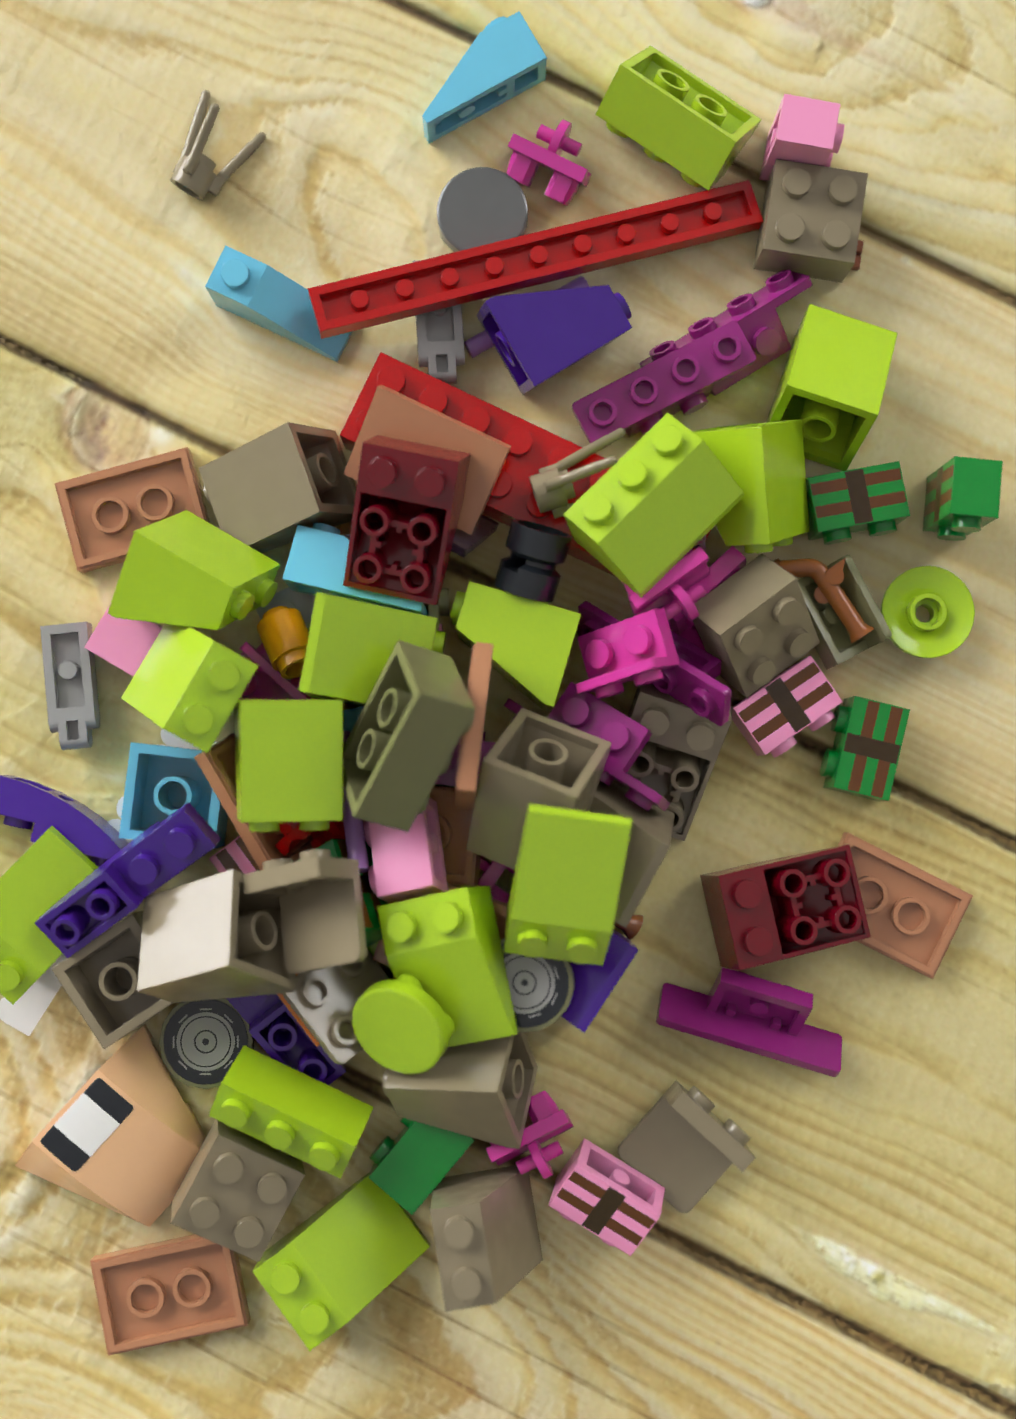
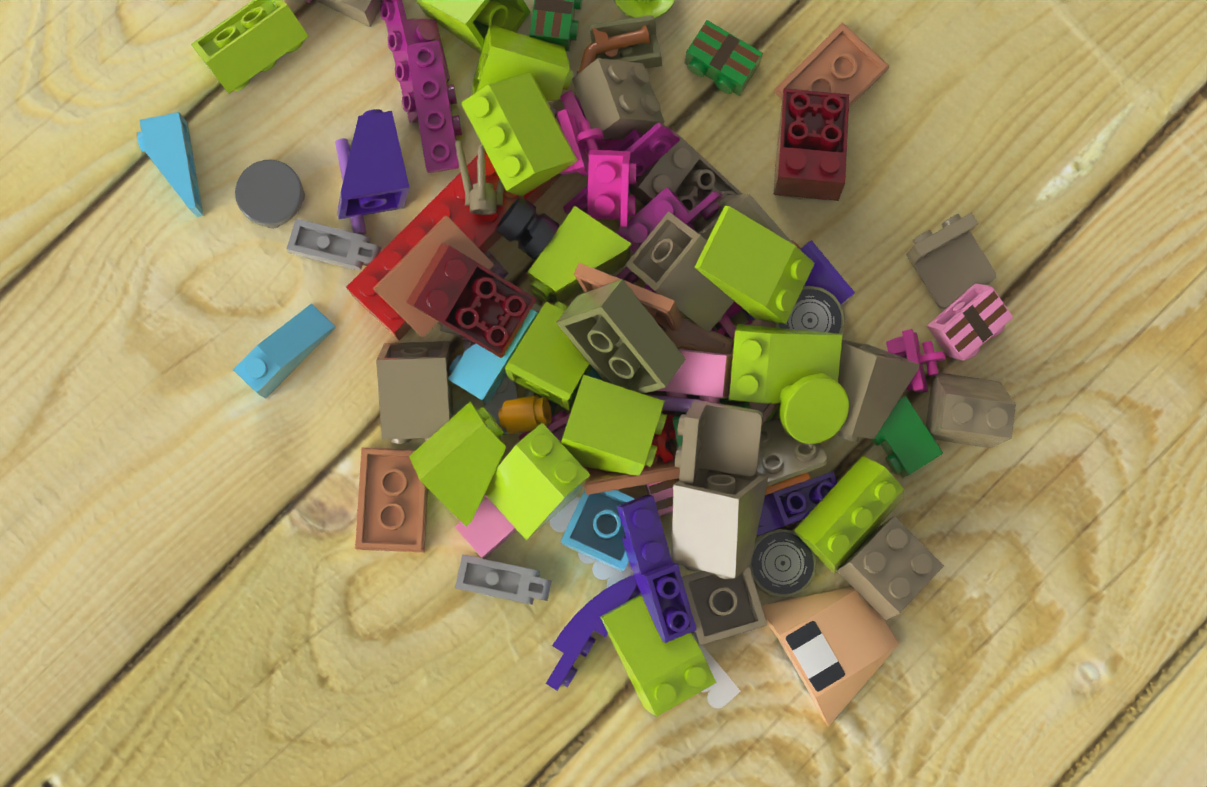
camera: 70 degrees left, 5 degrees down
(168, 1292) = (947, 643): nougat tile -> none
(195, 170) = (167, 380): dark tan plant -> none
(339, 1260) = (958, 514): lime slope -> none
(529, 156) = (263, 127): dark pink hips -> none
(534, 259) = (315, 168): red plate -> none
(753, 1018) = (878, 189): magenta bracket -> none
(785, 707) = (679, 100): brick -> none

